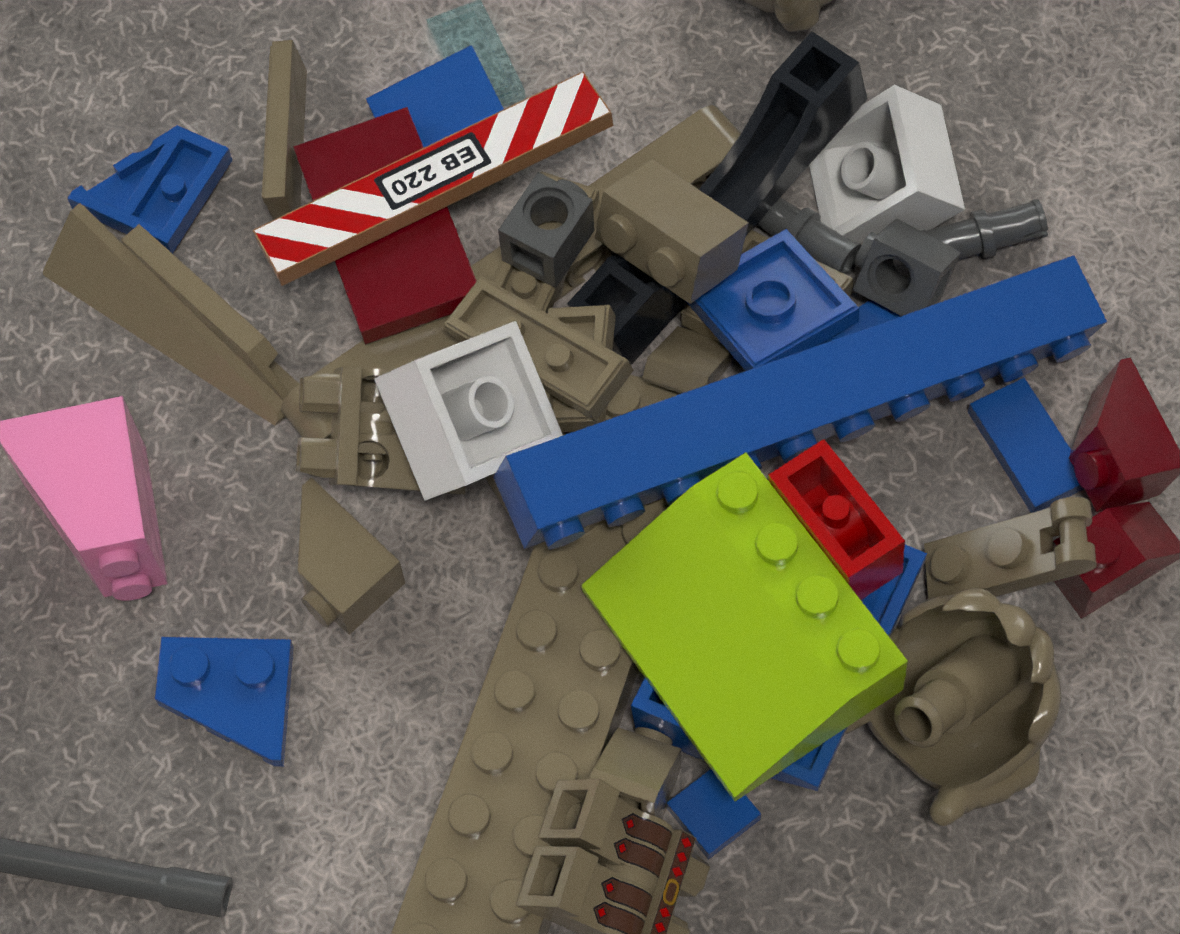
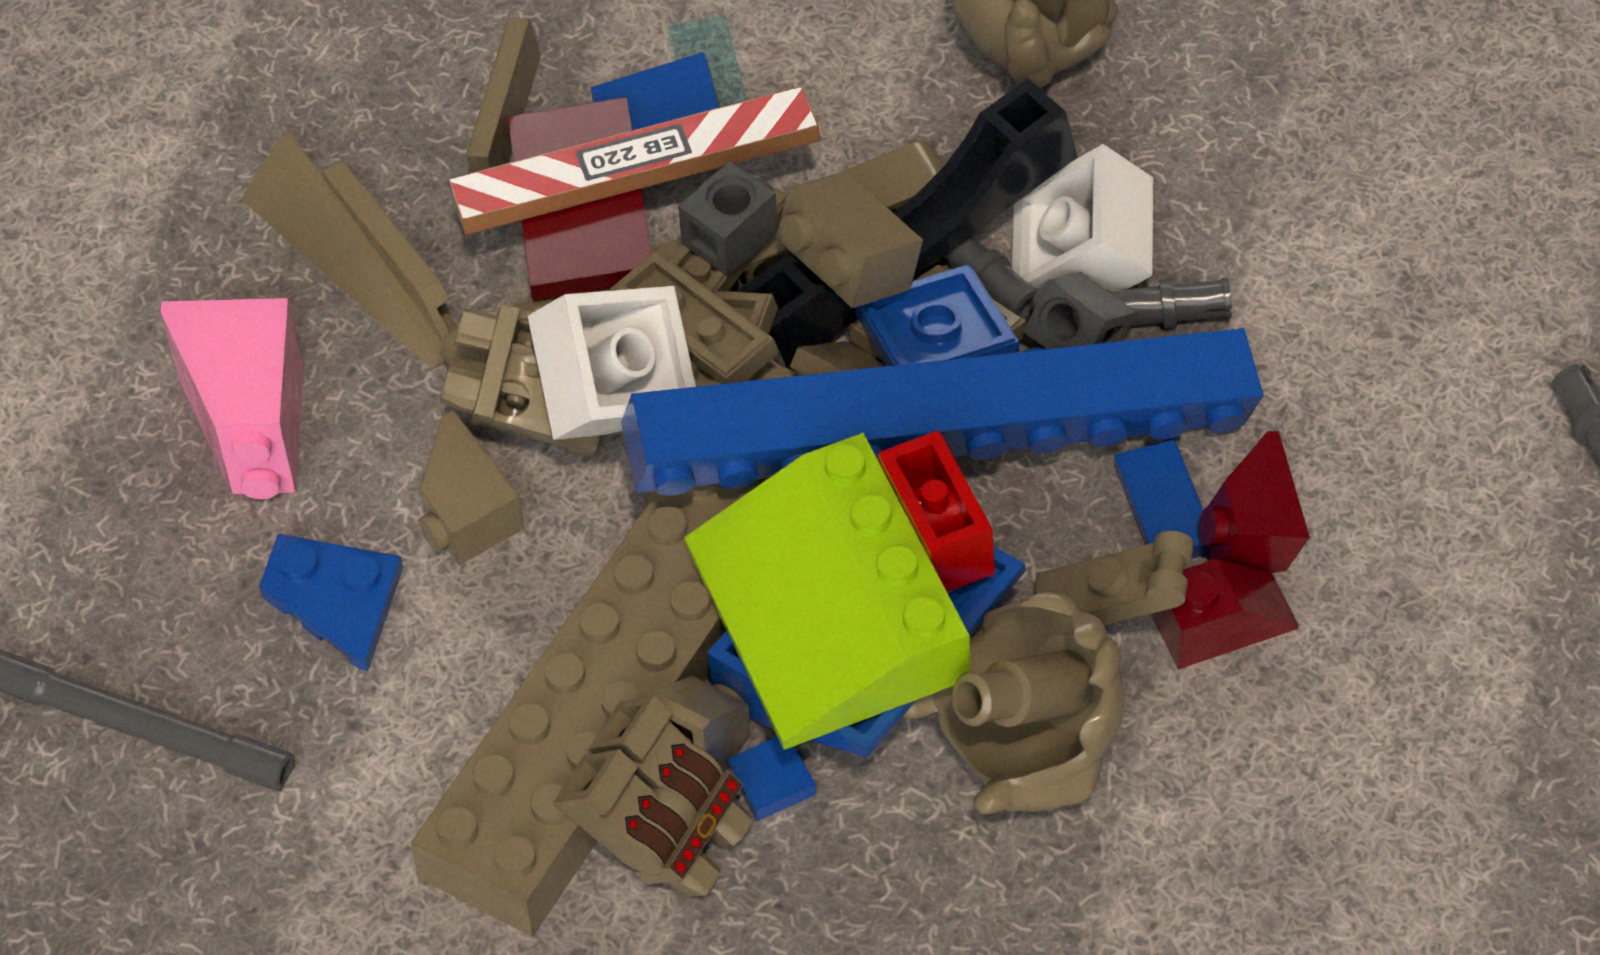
camera: 10 degrees right, 10 degrees down
(158, 186) = (373, 134): blue wing -> none

